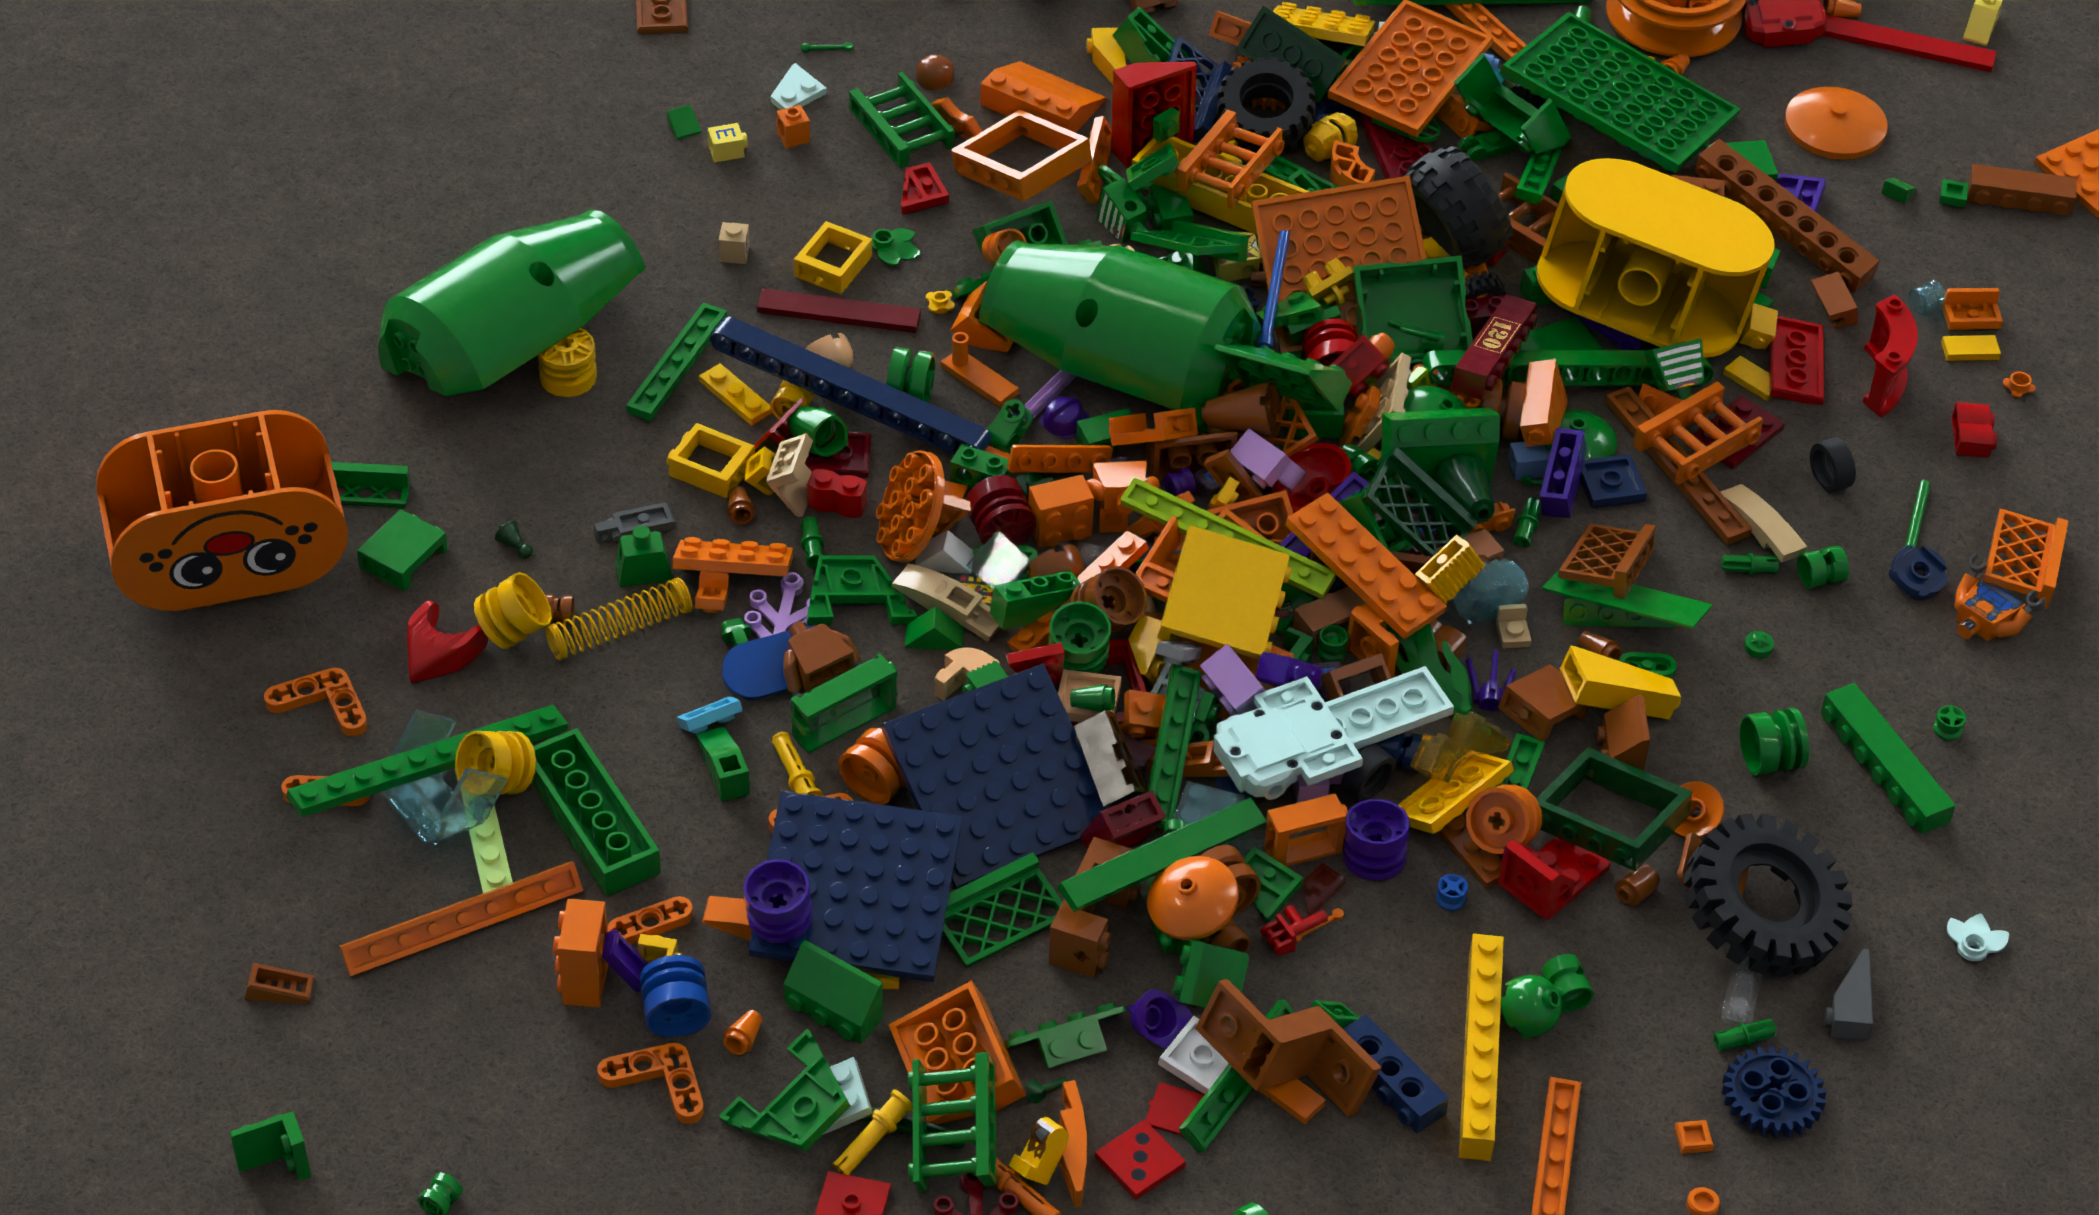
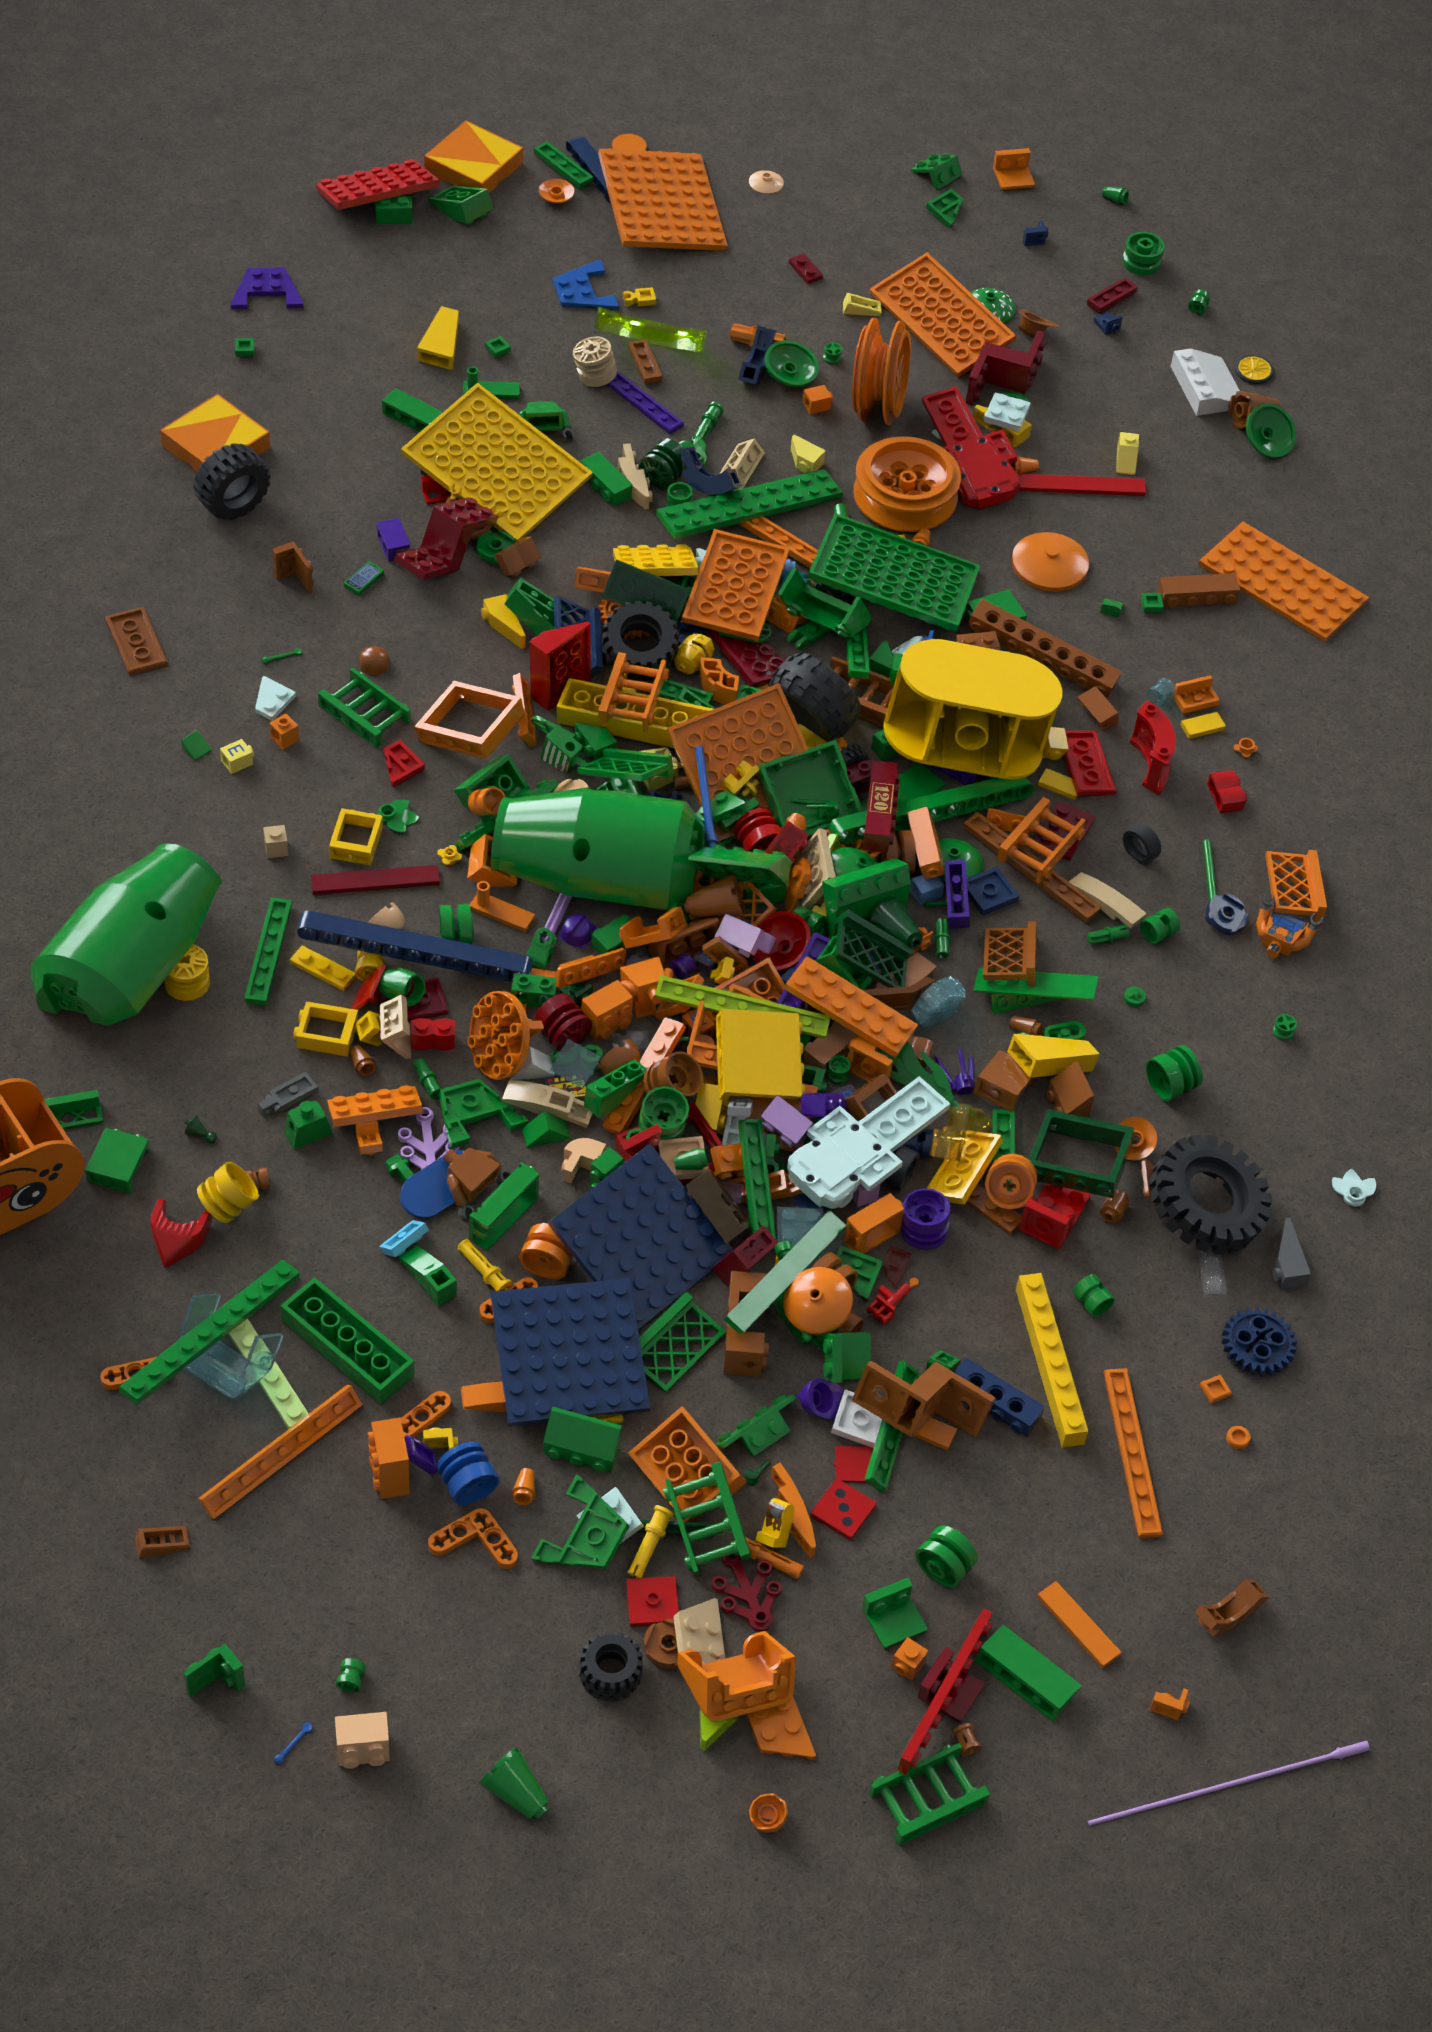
camera: 20 degrees left, 5 degrees up
(330, 691) = (108, 1291): orange beam -> none
(501, 754) = (264, 1316): yellow wheel -> none
(678, 595) = (266, 1200): yellow piece -> none
(778, 901) = (521, 1370): dark purple wheel -> none
(958, 119) = (417, 702): orange tile -> none
(1039, 94) = (461, 662): orange slope -> none
(1146, 170) = (577, 711): green plate -> none
(1166, 125) = (574, 673): green plate -> none
(1450, 569) = (913, 995): yellow brick -> none
(1452, 885) = (987, 1240): blue wheel -> none
(1513, 626) = (960, 1025): tan bracket -> none
(1531, 1005) = (1077, 1320): green cylinder -> none
(1677, 367) = (1011, 791): green torso -> none
(1744, 1034) = (1224, 1303): green axle -> none
(1805, 188) = (1046, 621): dark purple wing -> none
(1887, 758) = (1252, 1065): green brick -> none

